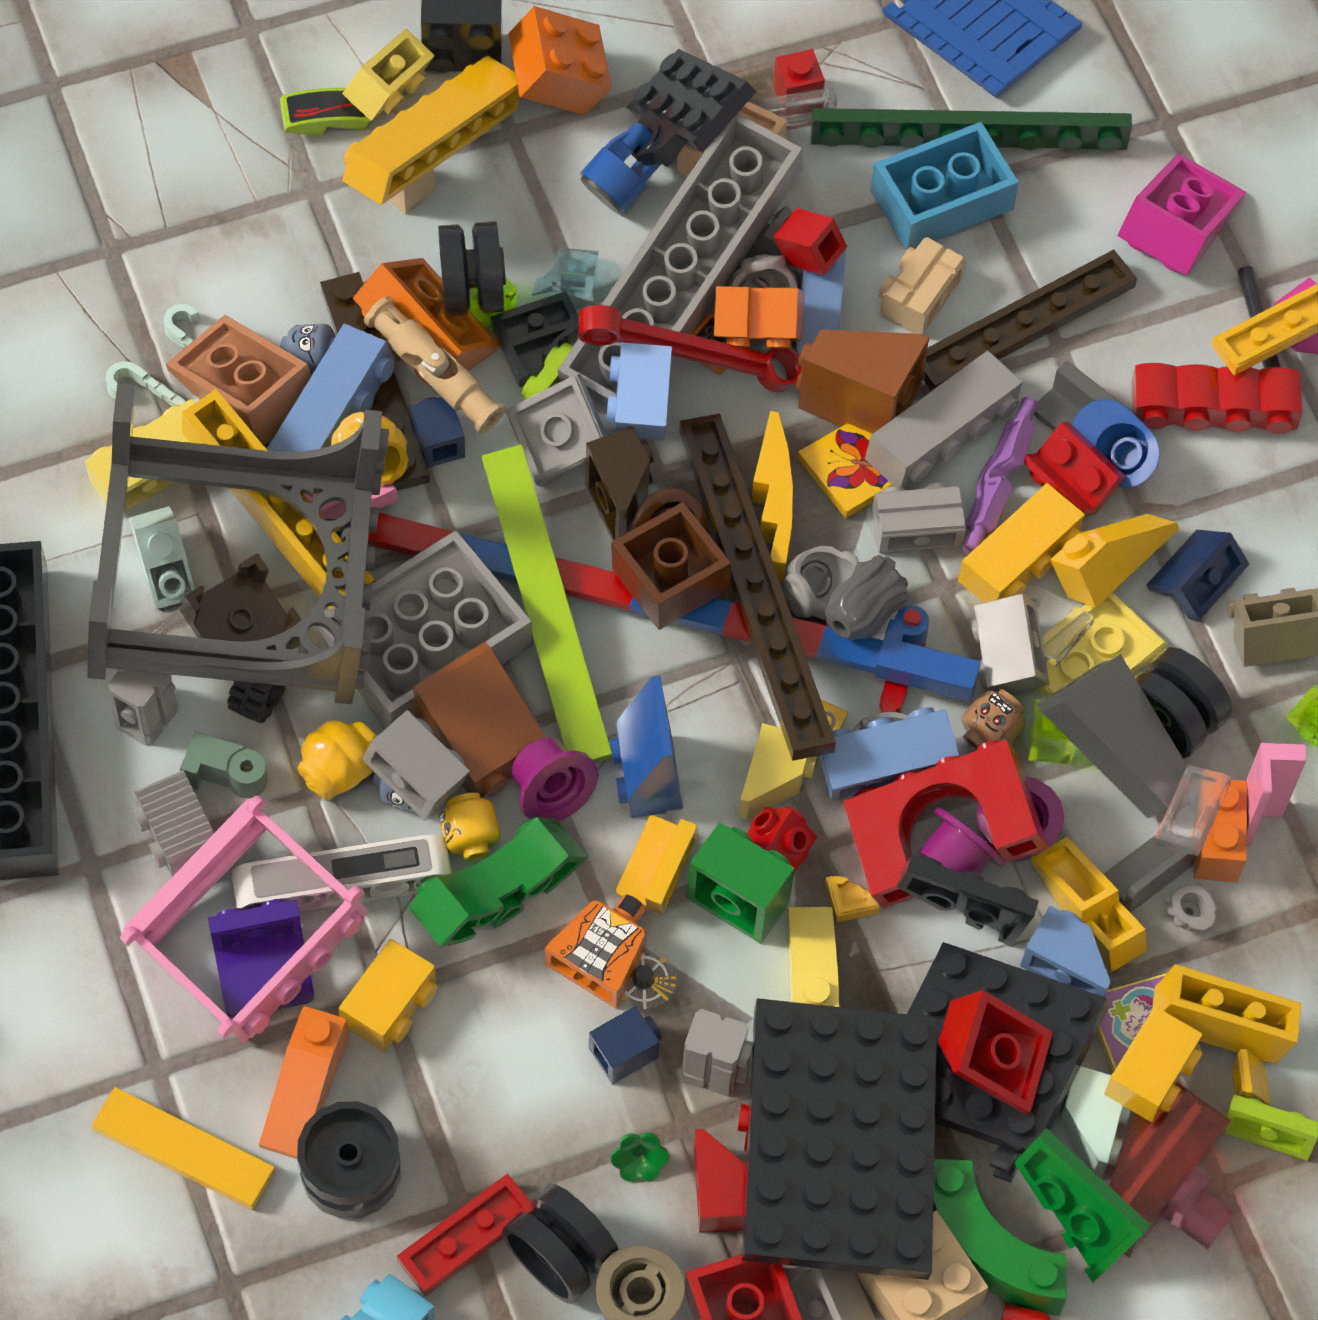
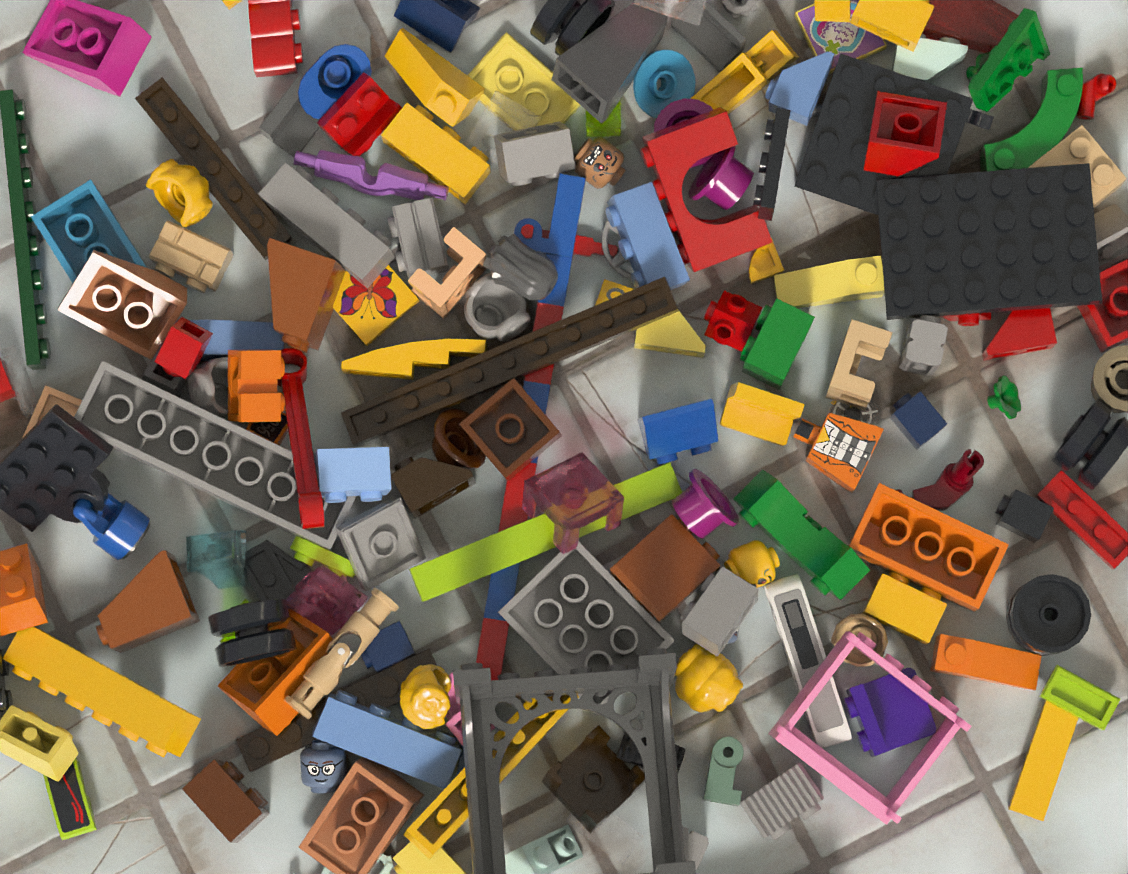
camera: 90 degrees left, 20 degrees up
(238, 1187) = (1079, 697): none -> lime tile
(289, 244) = (227, 800): none -> reddish brown brick
(366, 944) = (867, 625): none -> tan hair
(455, 1022) = (927, 547): none -> orange slope
(483, 1154) = (1023, 515): none -> black brick
(505, 366) = (326, 599): none -> clear pink piece
(525, 195) = (148, 606): none -> dark orange slope
(528, 1066) = (952, 482): none -> dark red arm
(580, 623) = (573, 497): none -> clear pink panel
(705, 957) = (859, 341): none -> tan panel
(852, 531) = (456, 281): none -> light nougat panel
(876, 195) = (125, 302): none -> nougat slope
(1000, 282) = (181, 192): none -> yellow hair
(1112, 803) = (675, 76): none -> dark azure dish

